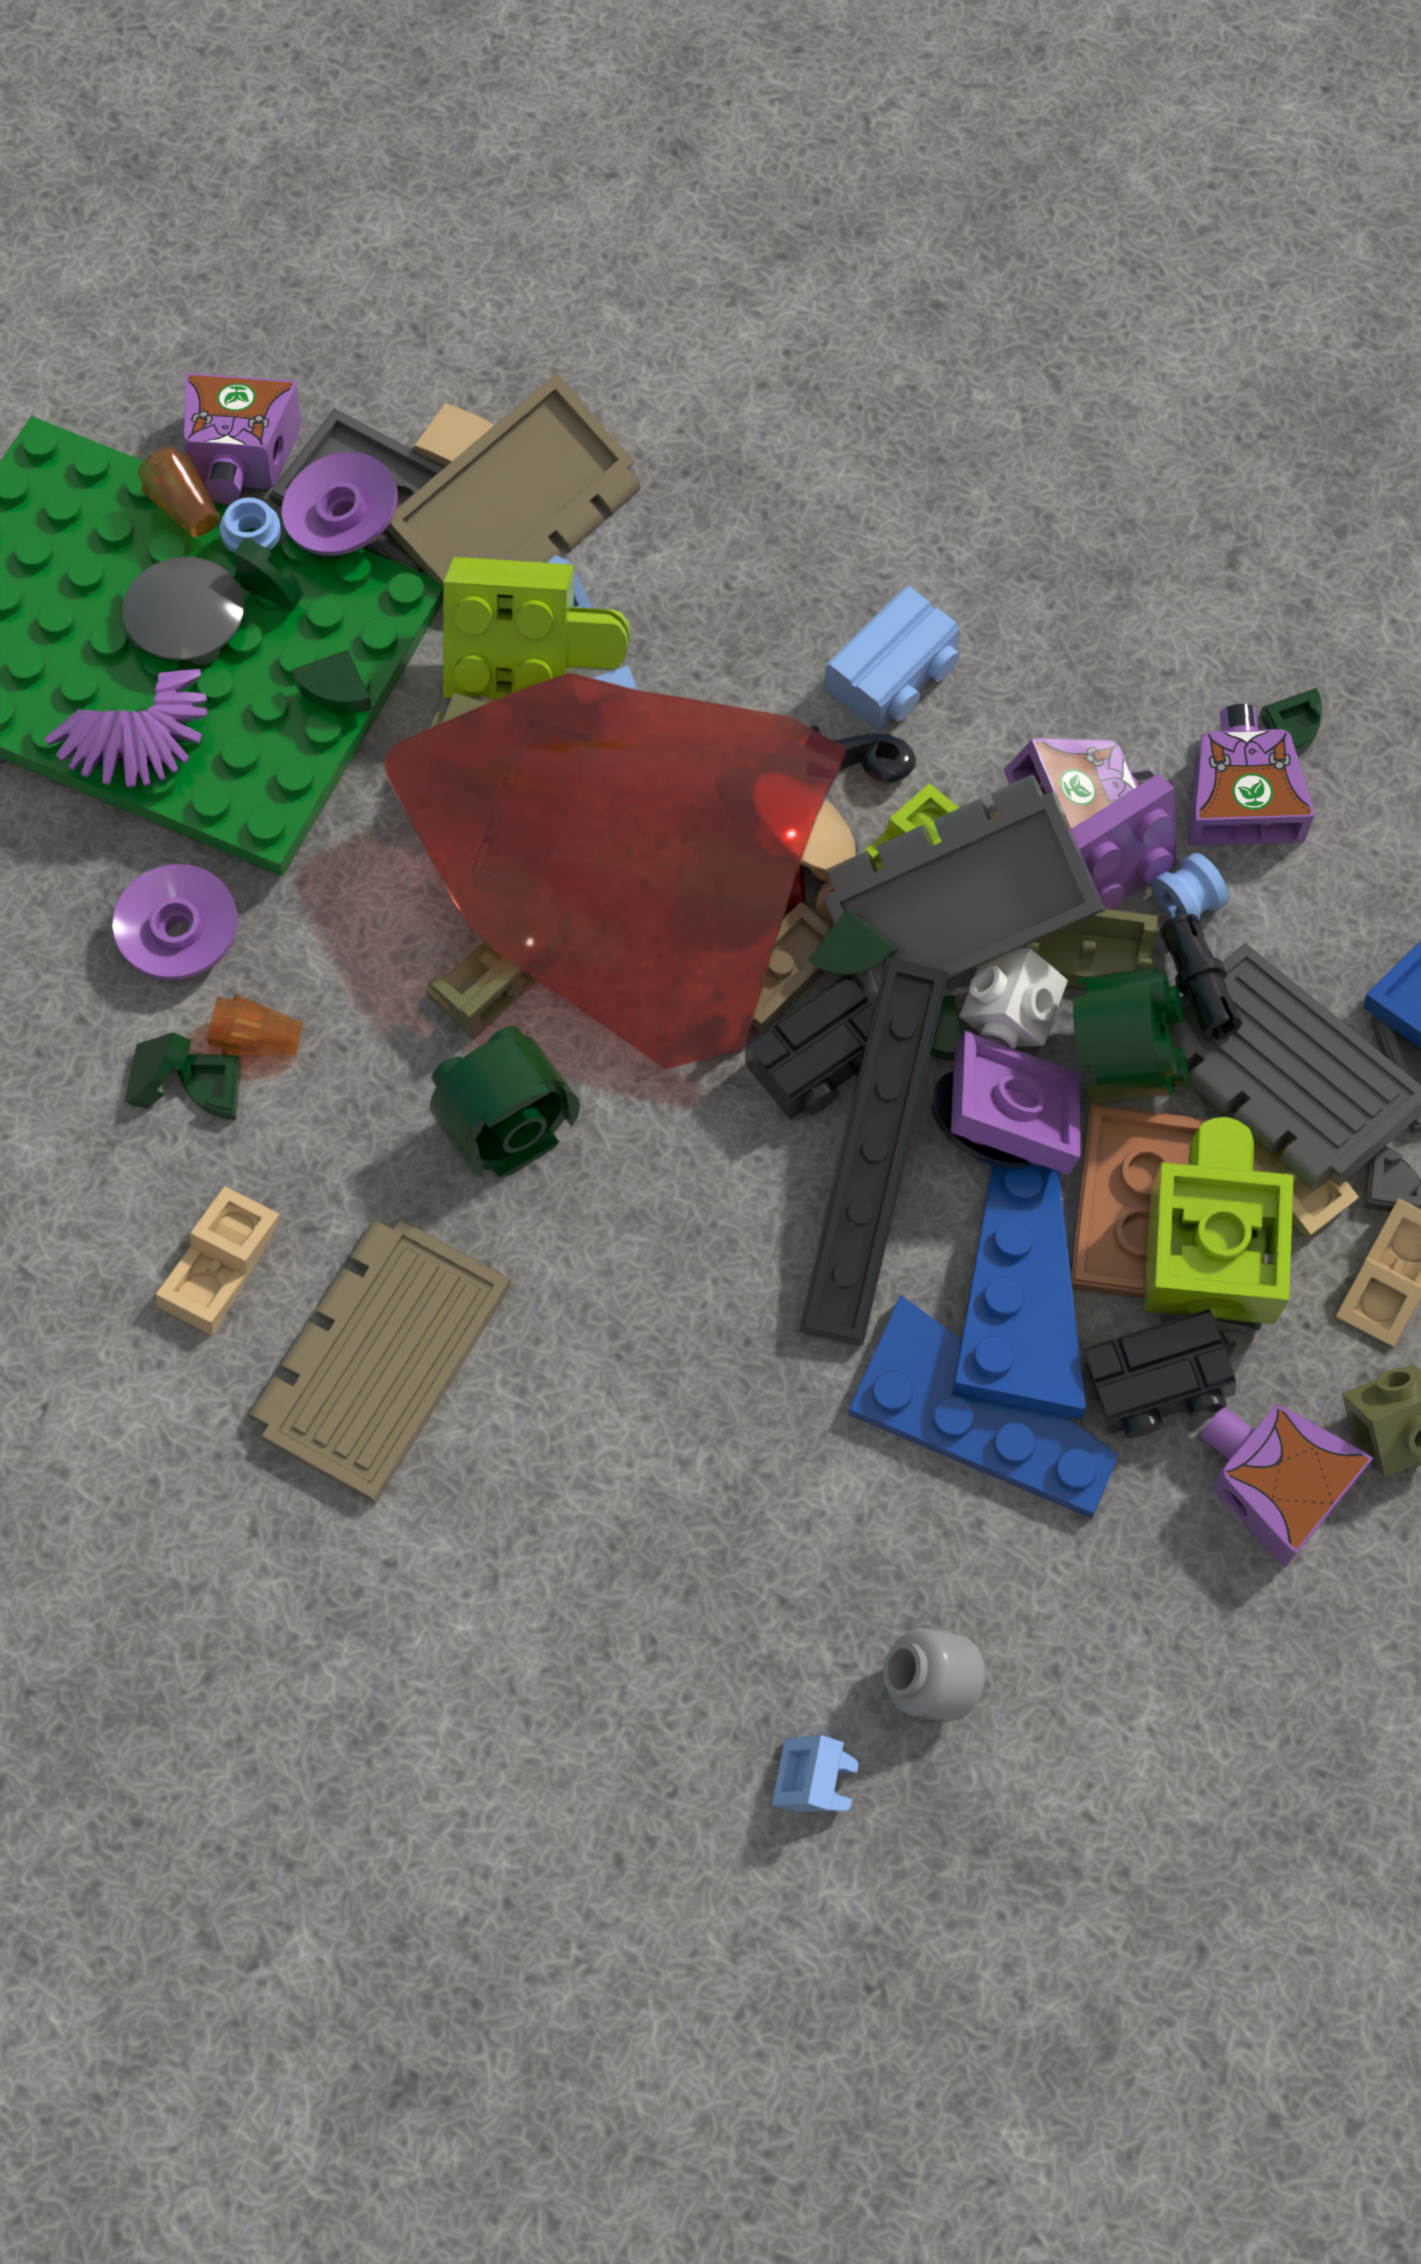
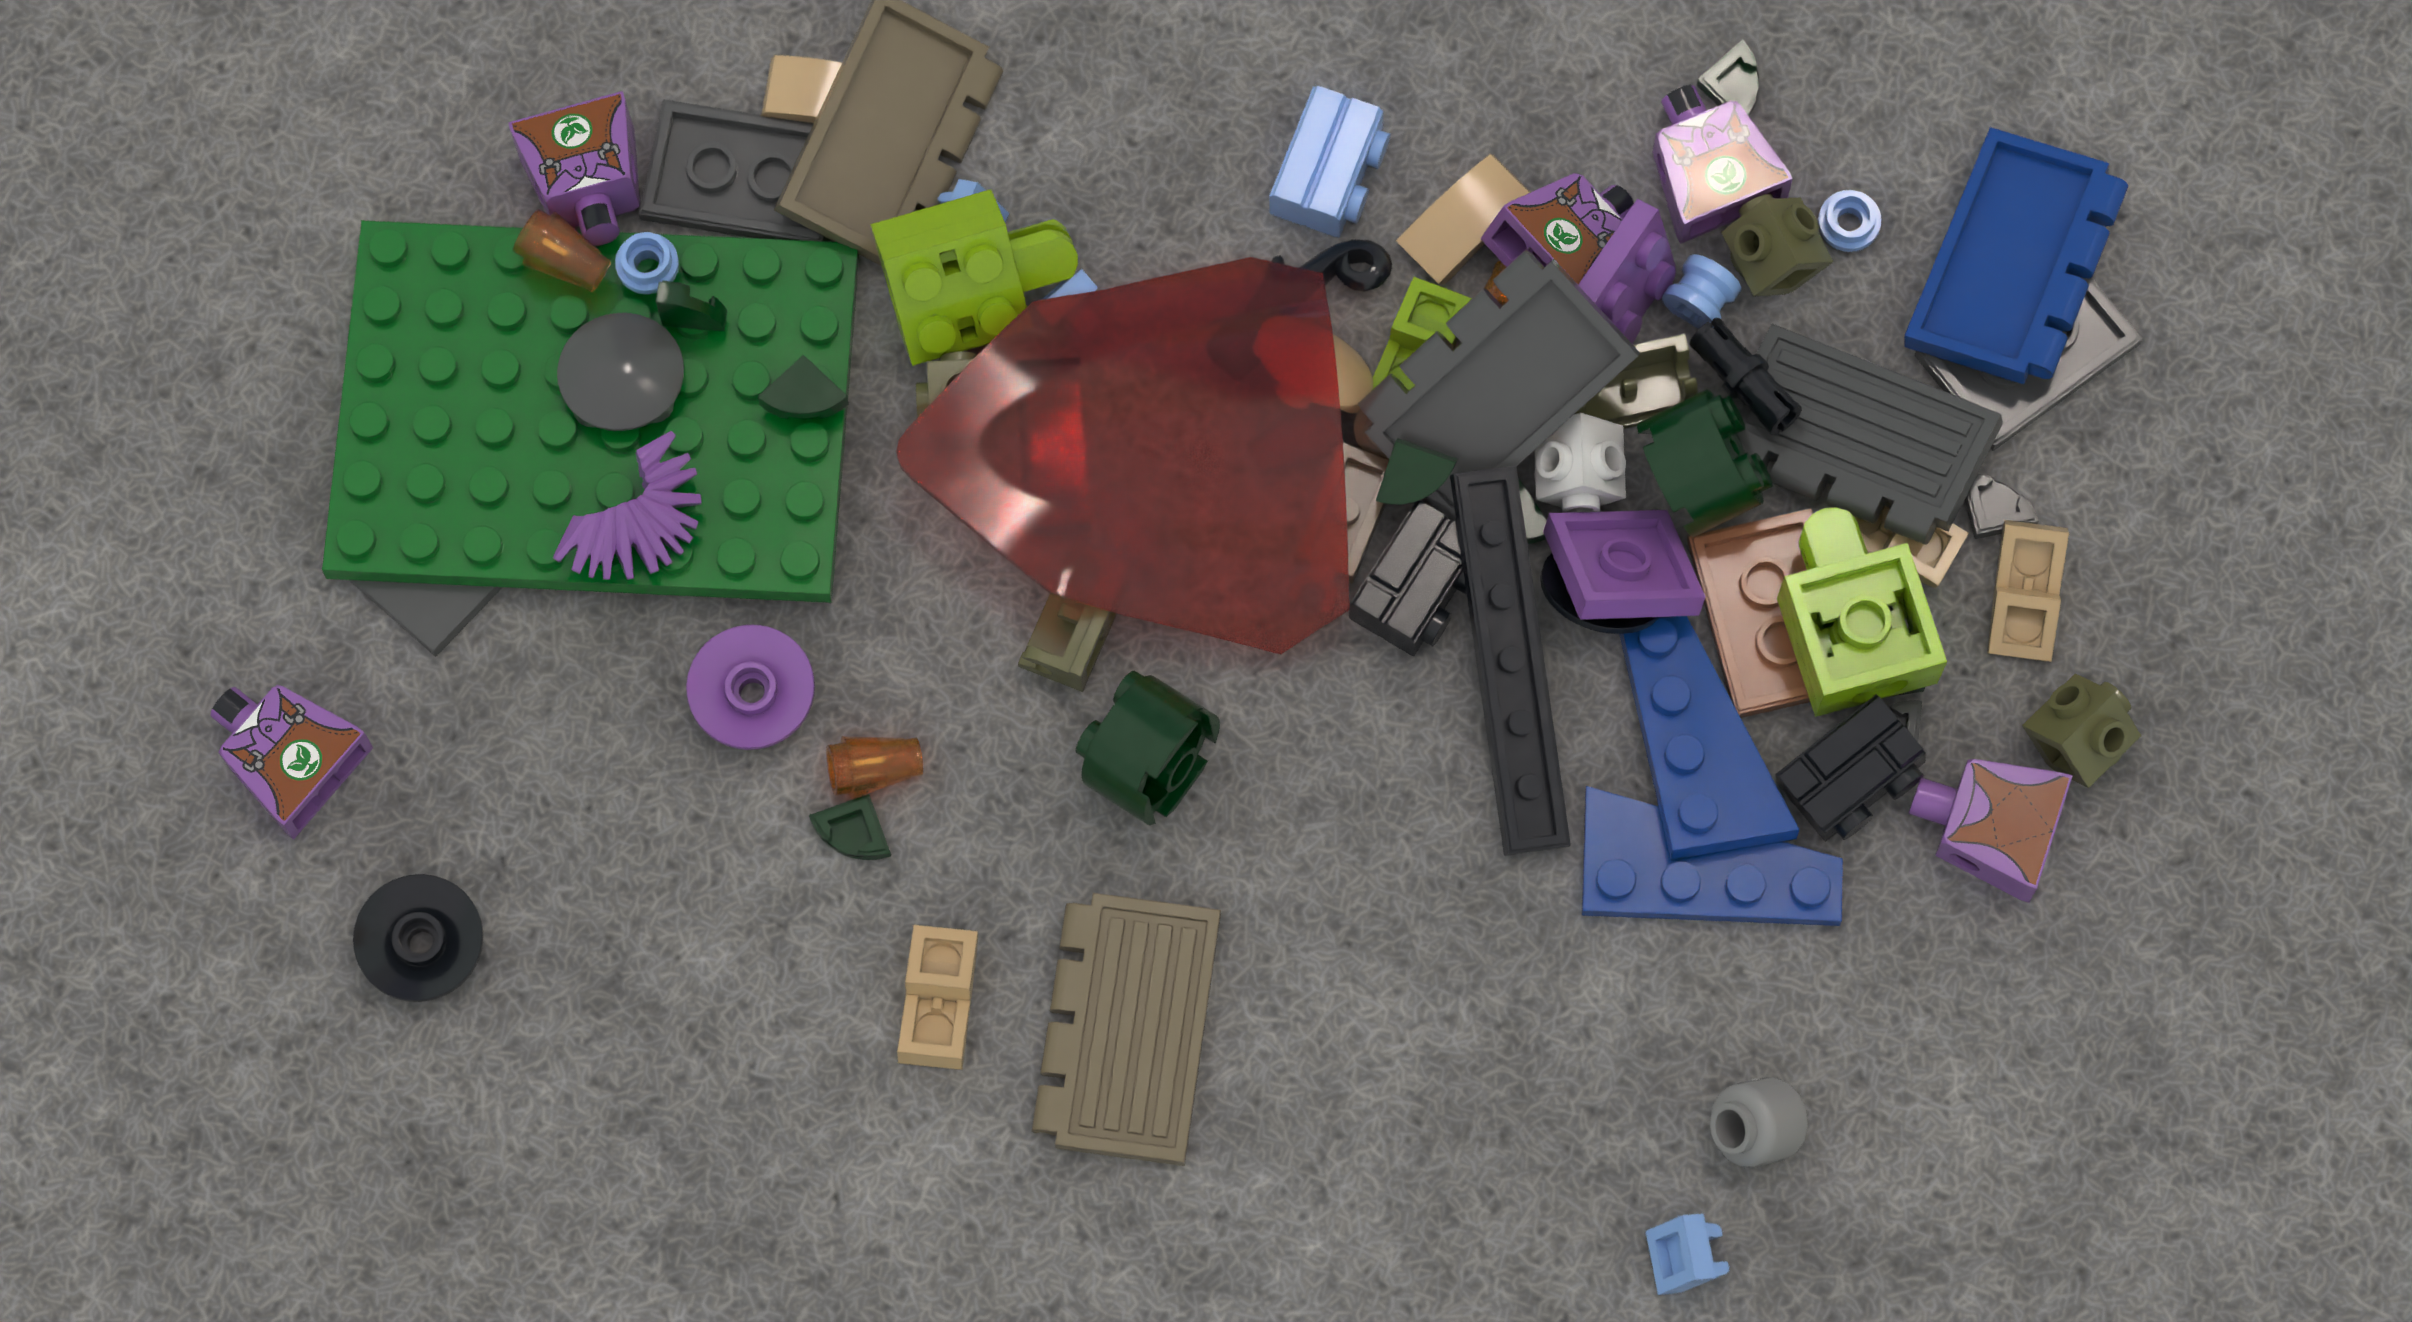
camera: 20 degrees left, 5 degrees up
(152, 1065) = (793, 836): dark green tile -> none
(335, 486) = (711, 184): medium lavender dish -> none
(976, 756) = (1452, 226): none -> tan slope
(1276, 873) = (1776, 245): none -> olive brick
(1363, 864) = (1852, 203): none -> light blue plate

